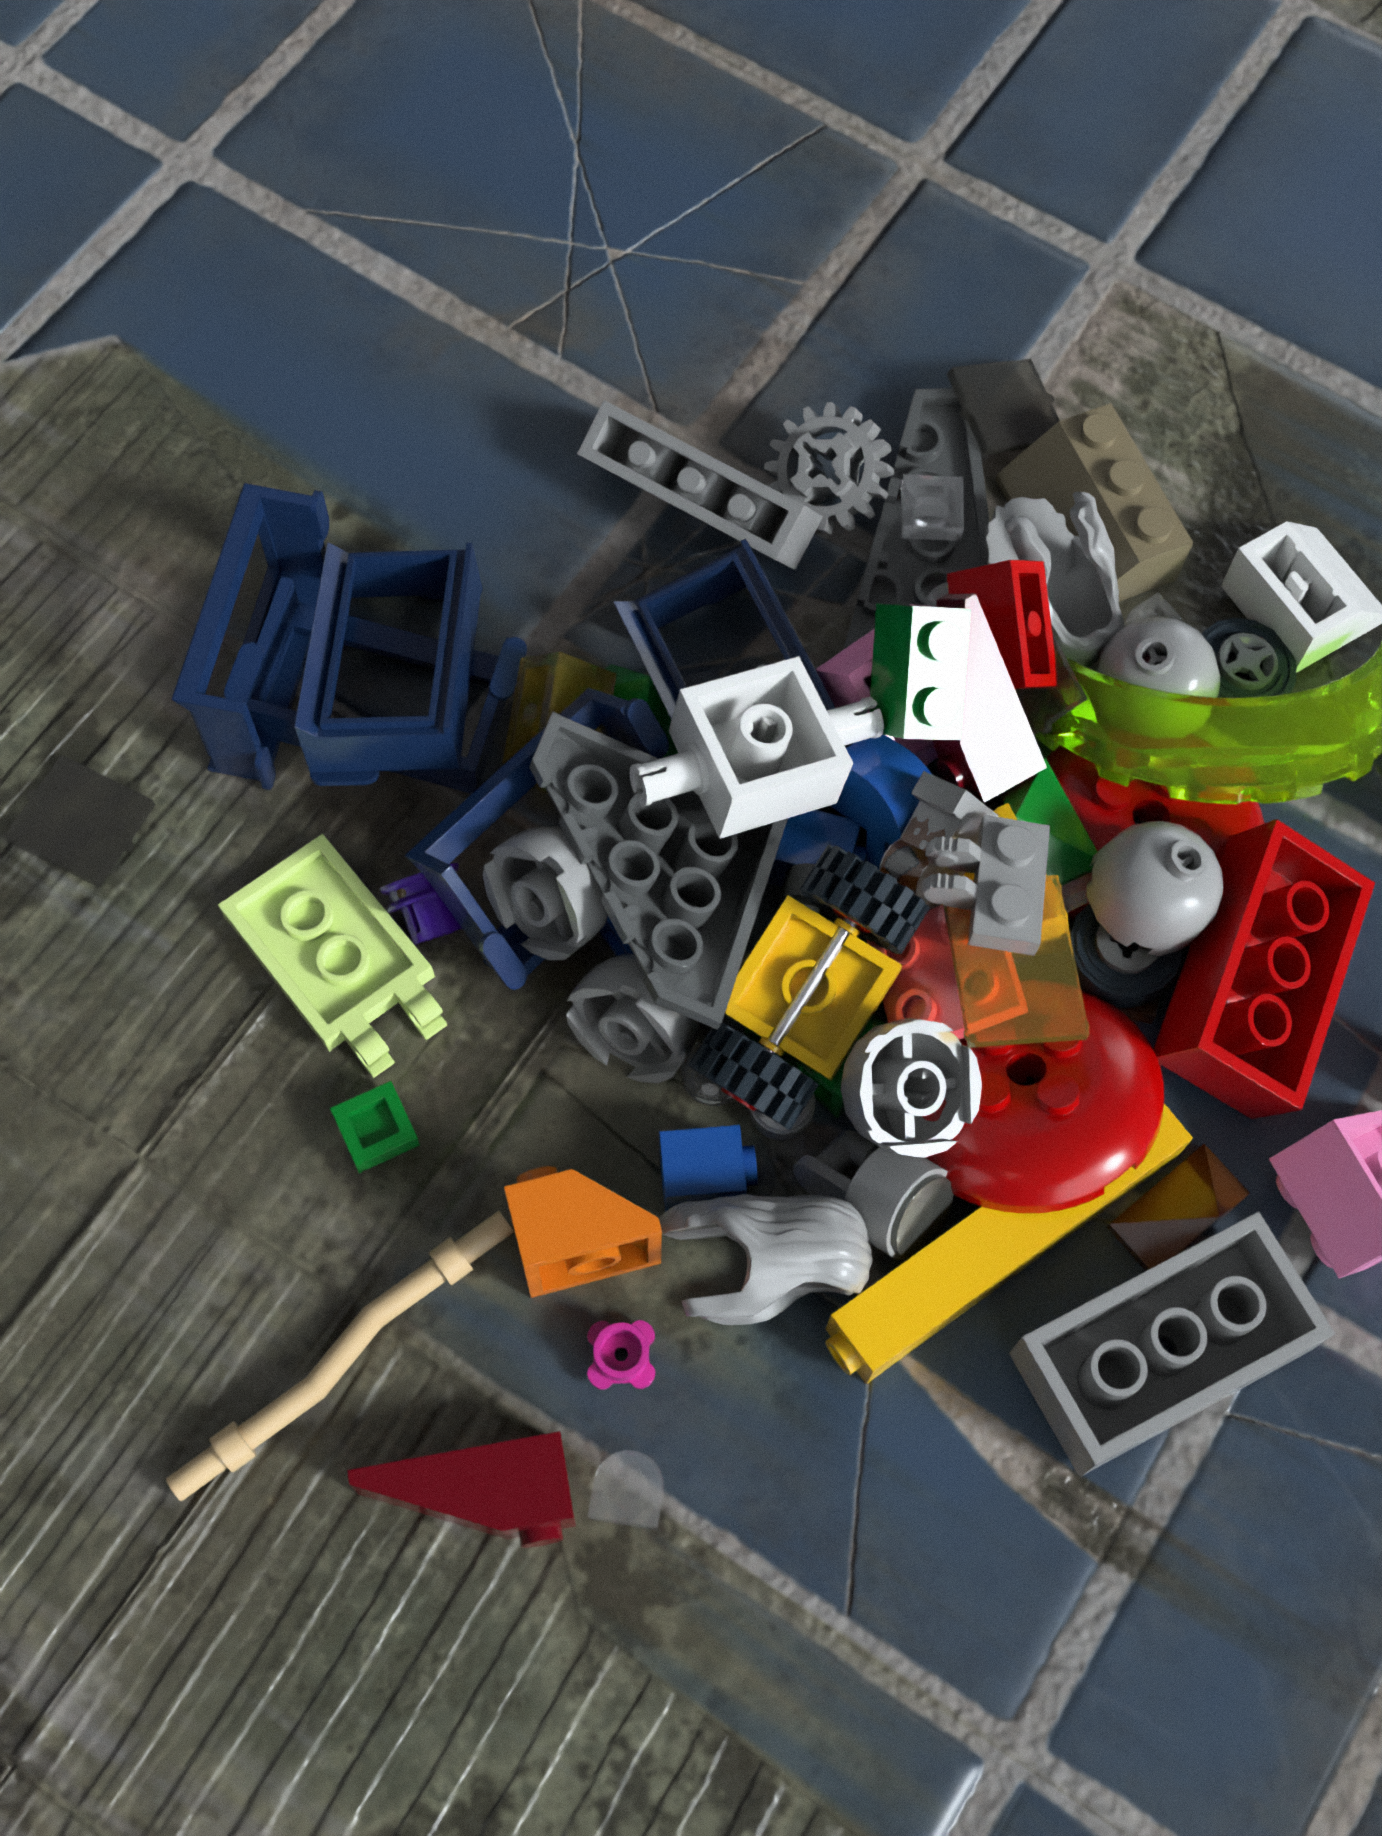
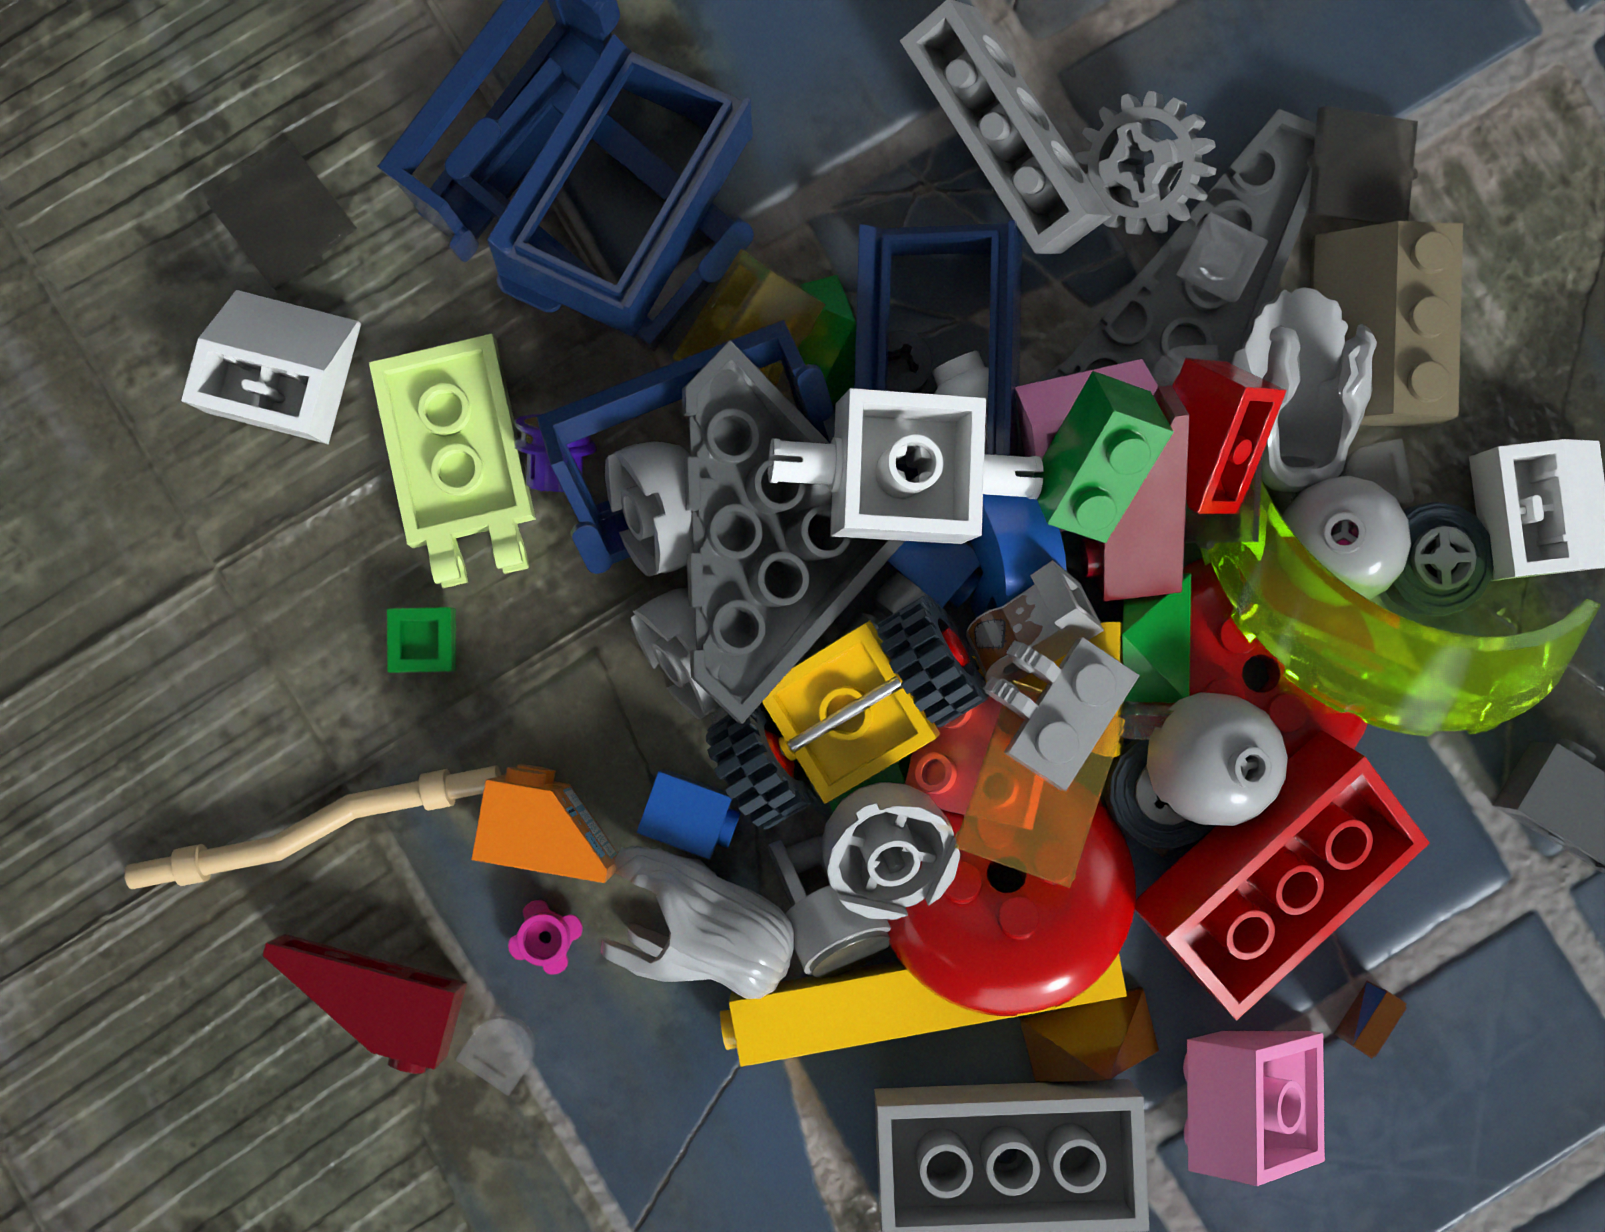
camera: 30 degrees right, 20 degrees up
(129, 946) = (273, 366): none -> white slope

